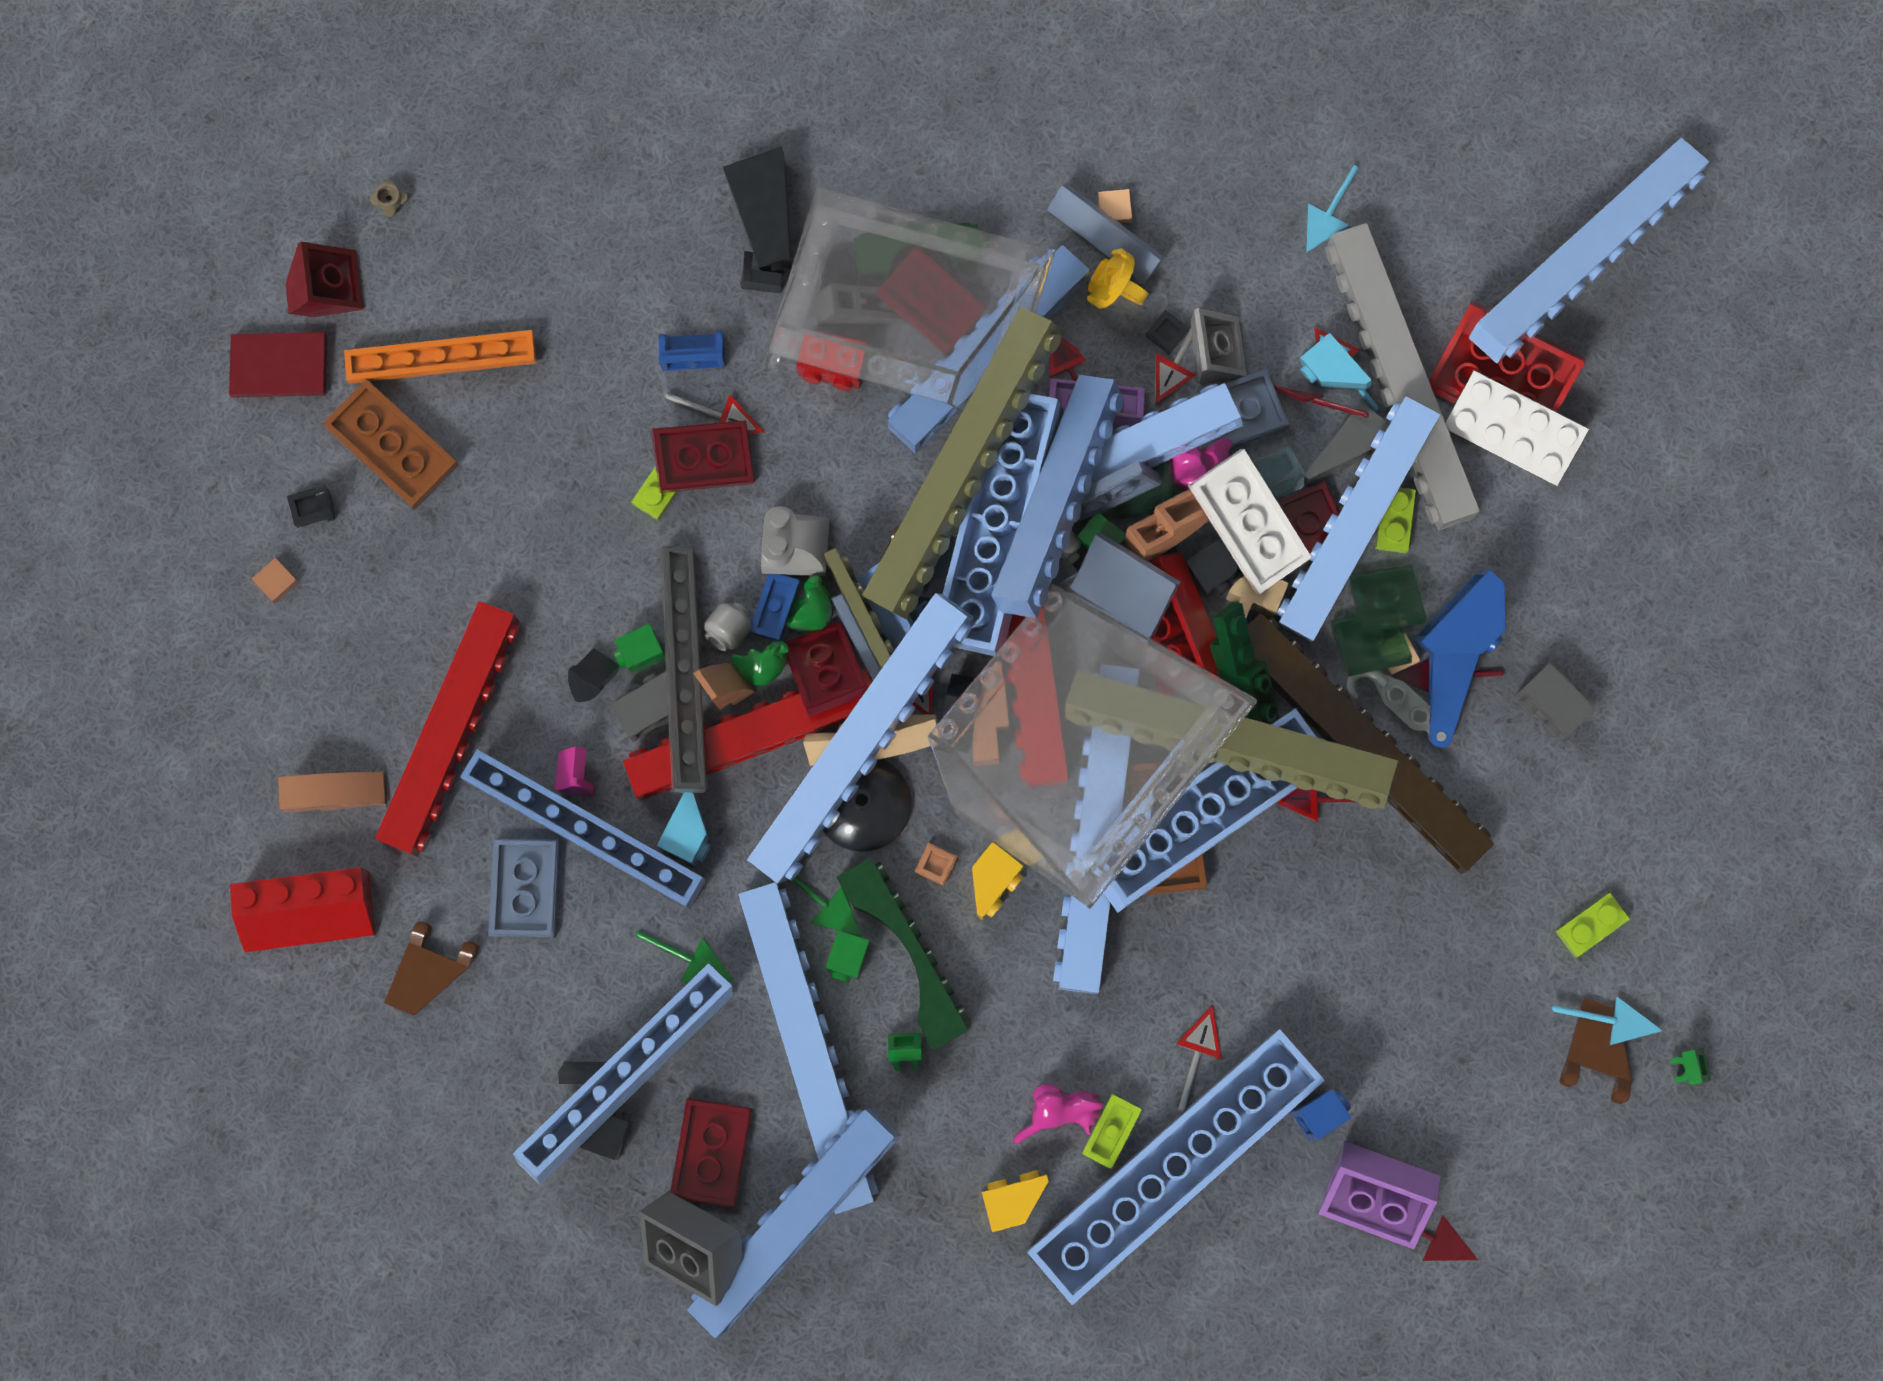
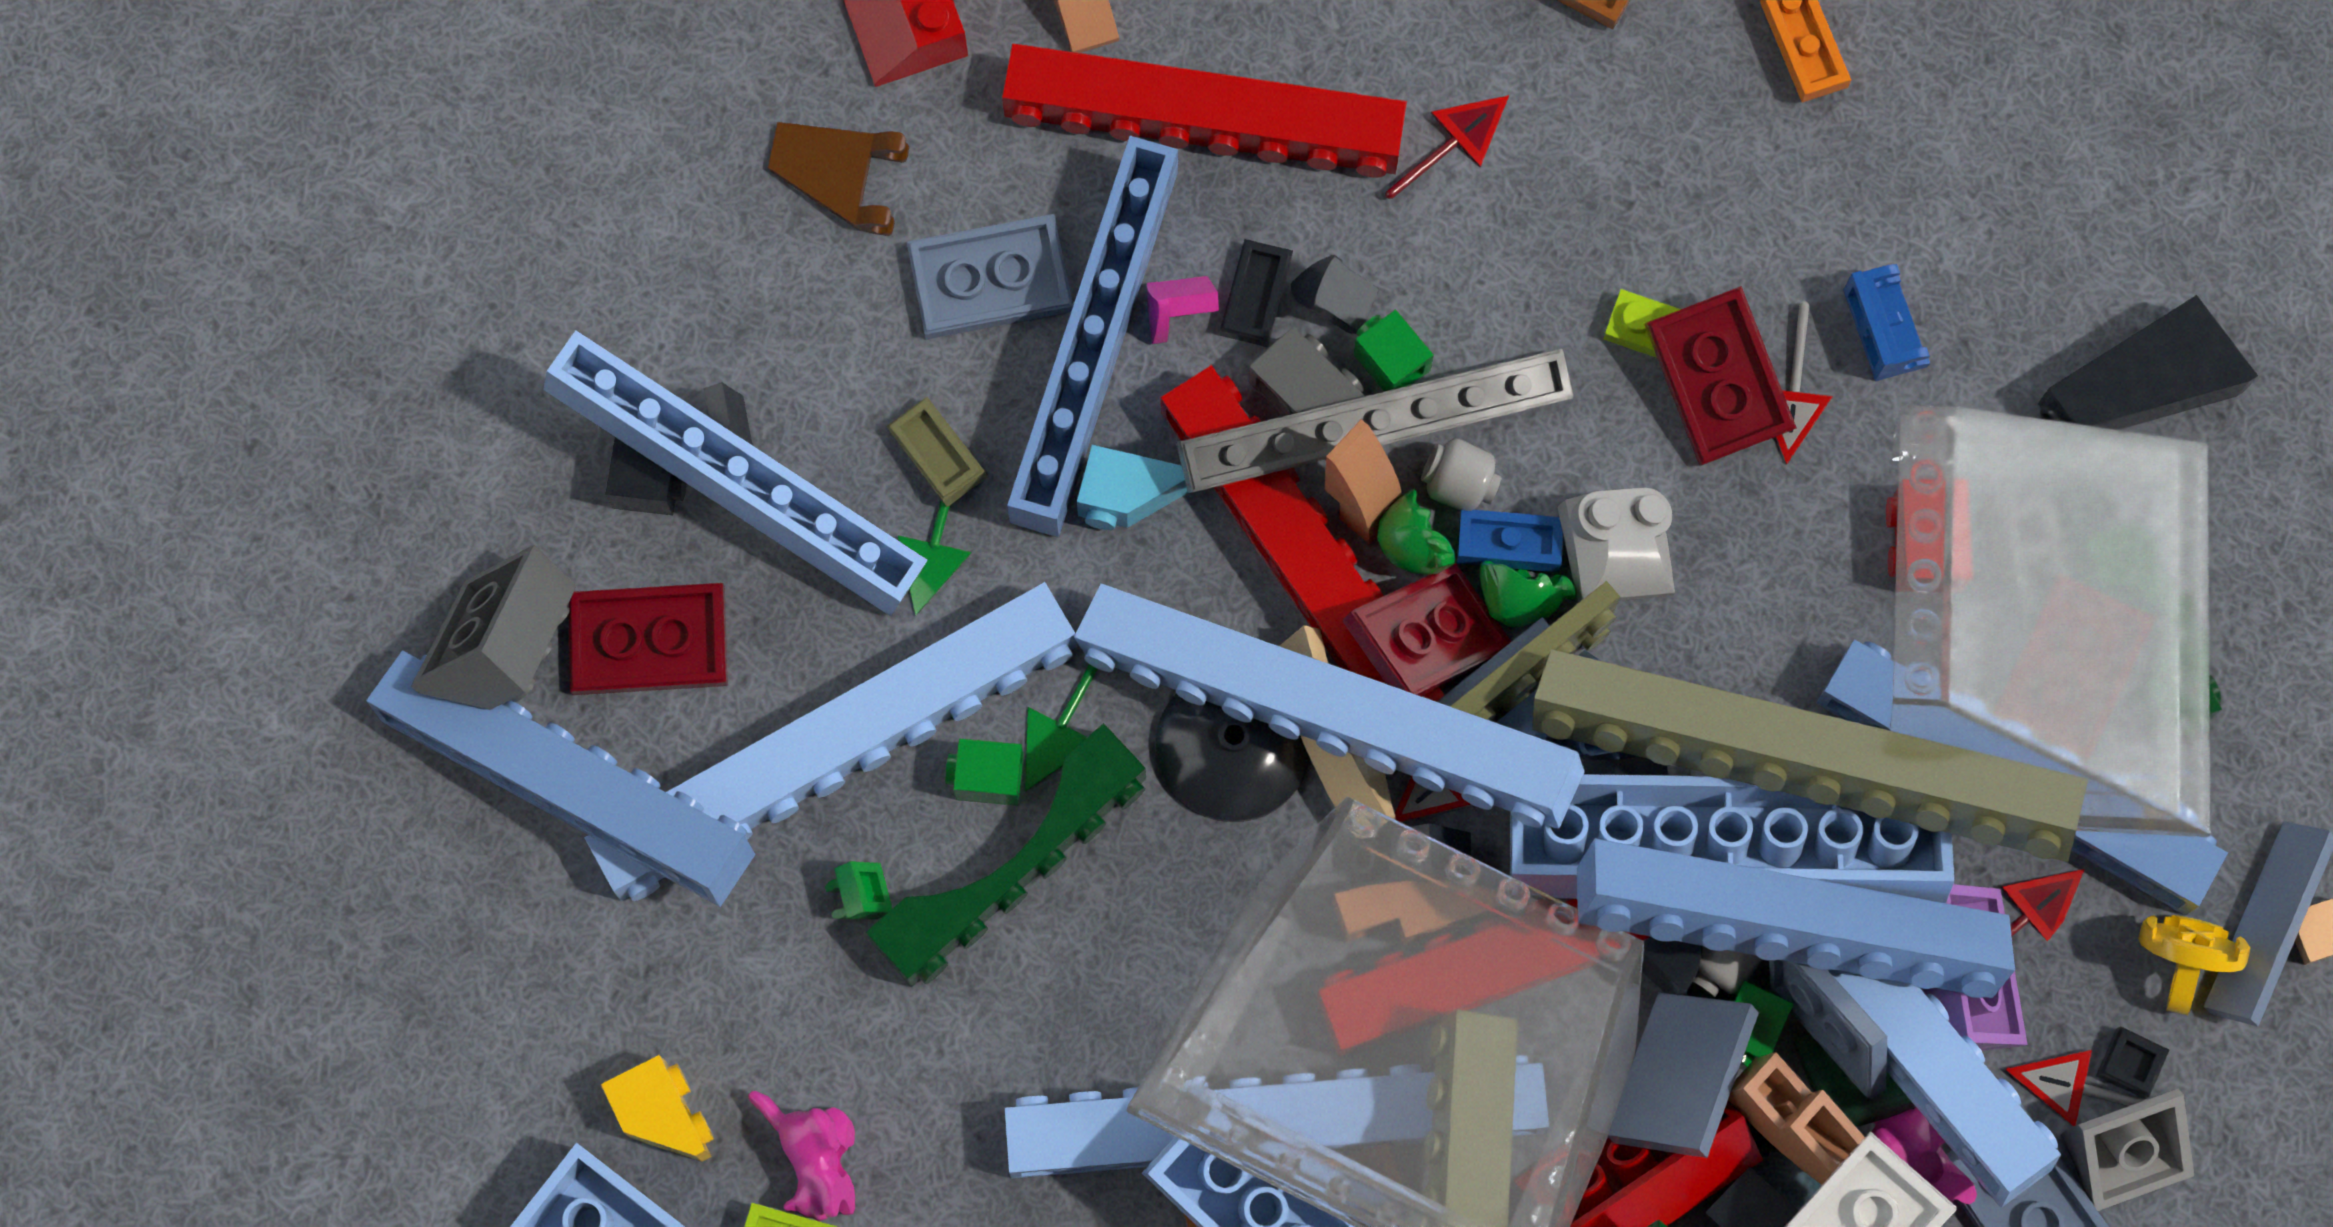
camera: 75 degrees right, 5 degrees down
(499, 568) = (1469, 127): none -> piece
(576, 724) = (1256, 293): none -> black tile
(633, 945) = (937, 451): none -> olive tile
(758, 279) = (2028, 383): black tile -> none
(936, 864) = (1162, 878): nougat tile -> none
(992, 877) = (1154, 966): yellow slope -> none

